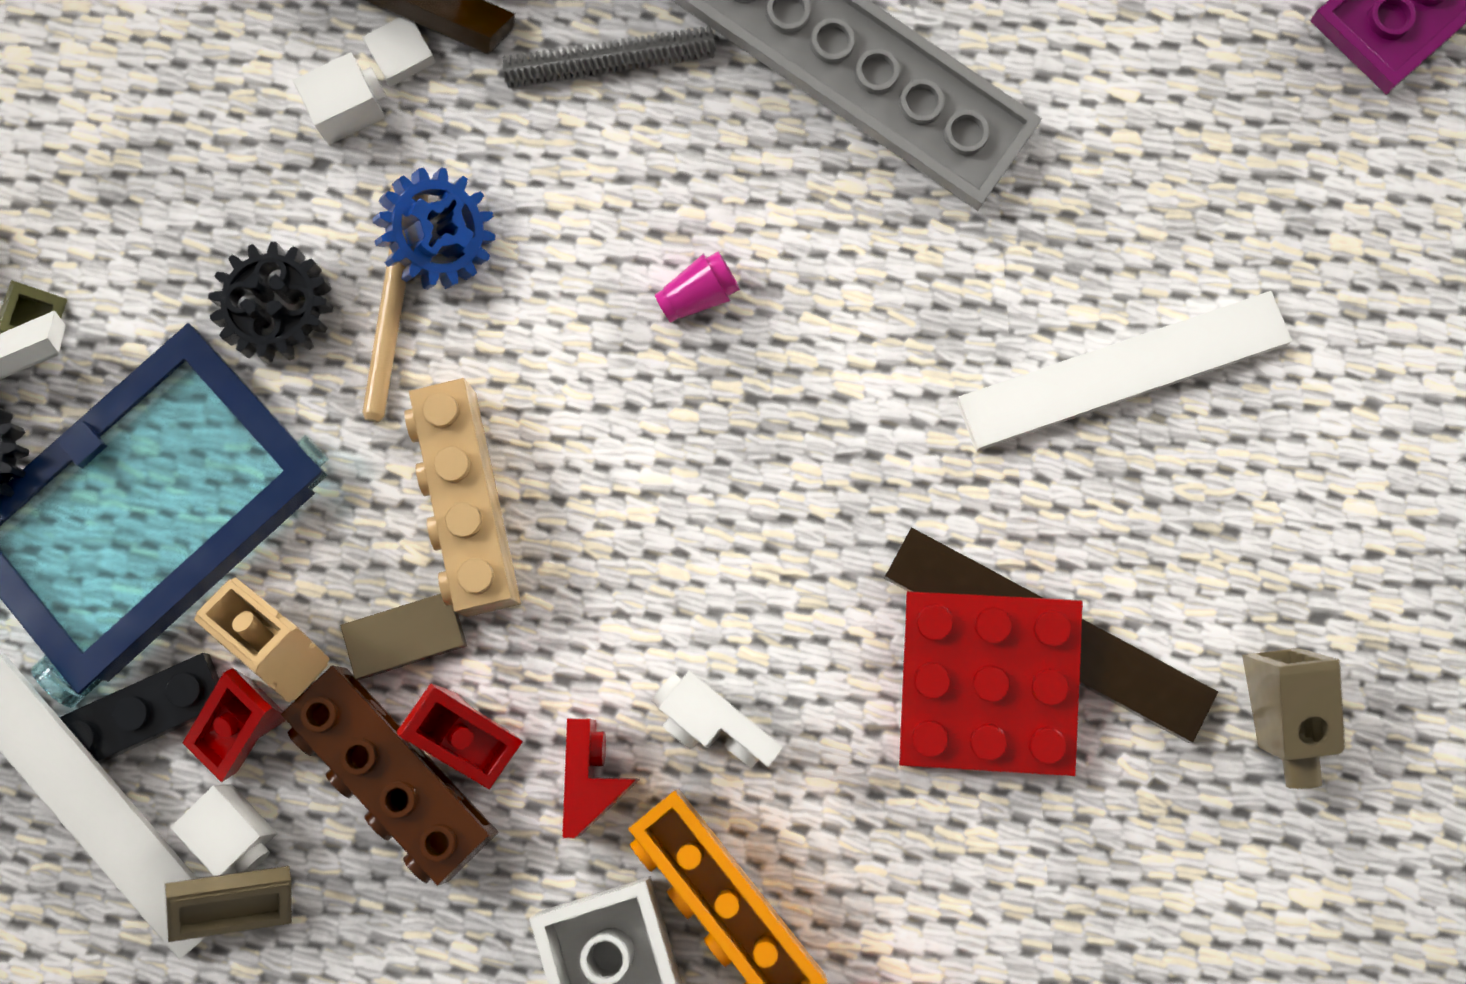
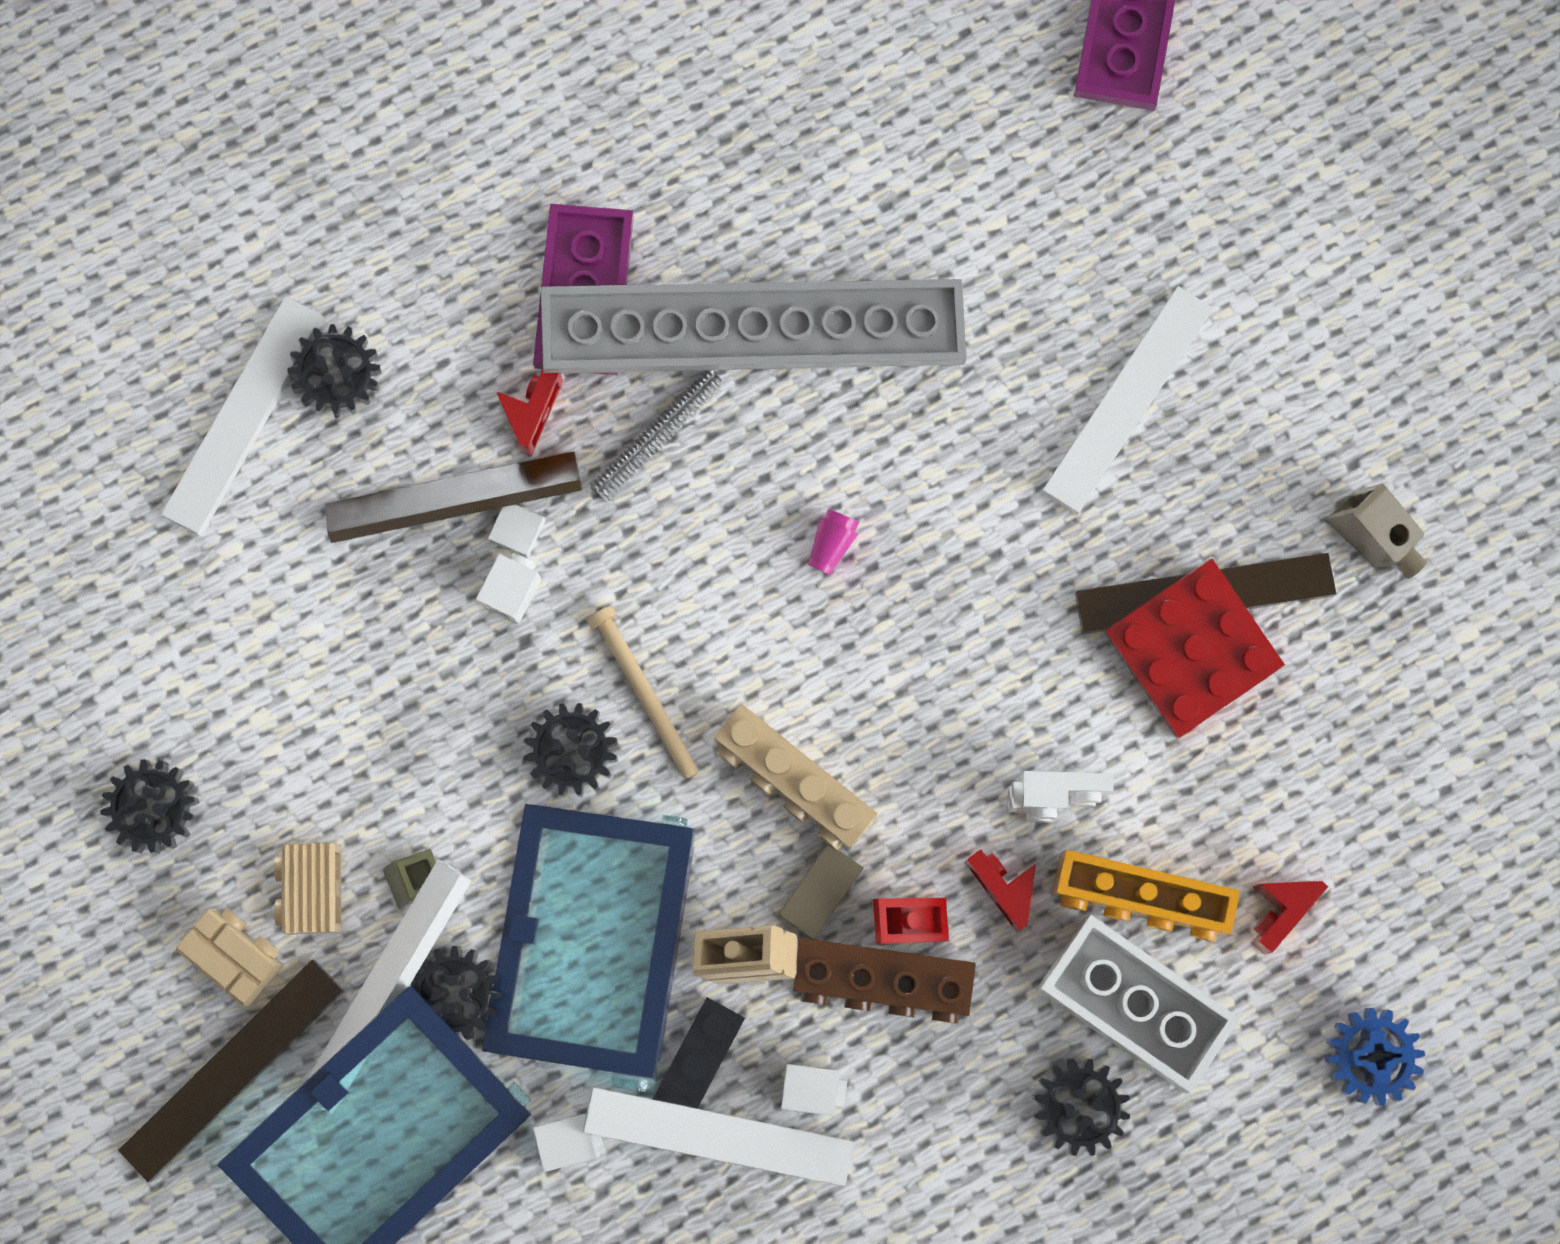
camera: 45 degrees left, 0 degrees up
(228, 903) = (851, 1126): dark tan tile -> none
(231, 724) = (764, 1023): red slope -> none
(458, 227) = (641, 626): blue gear -> none

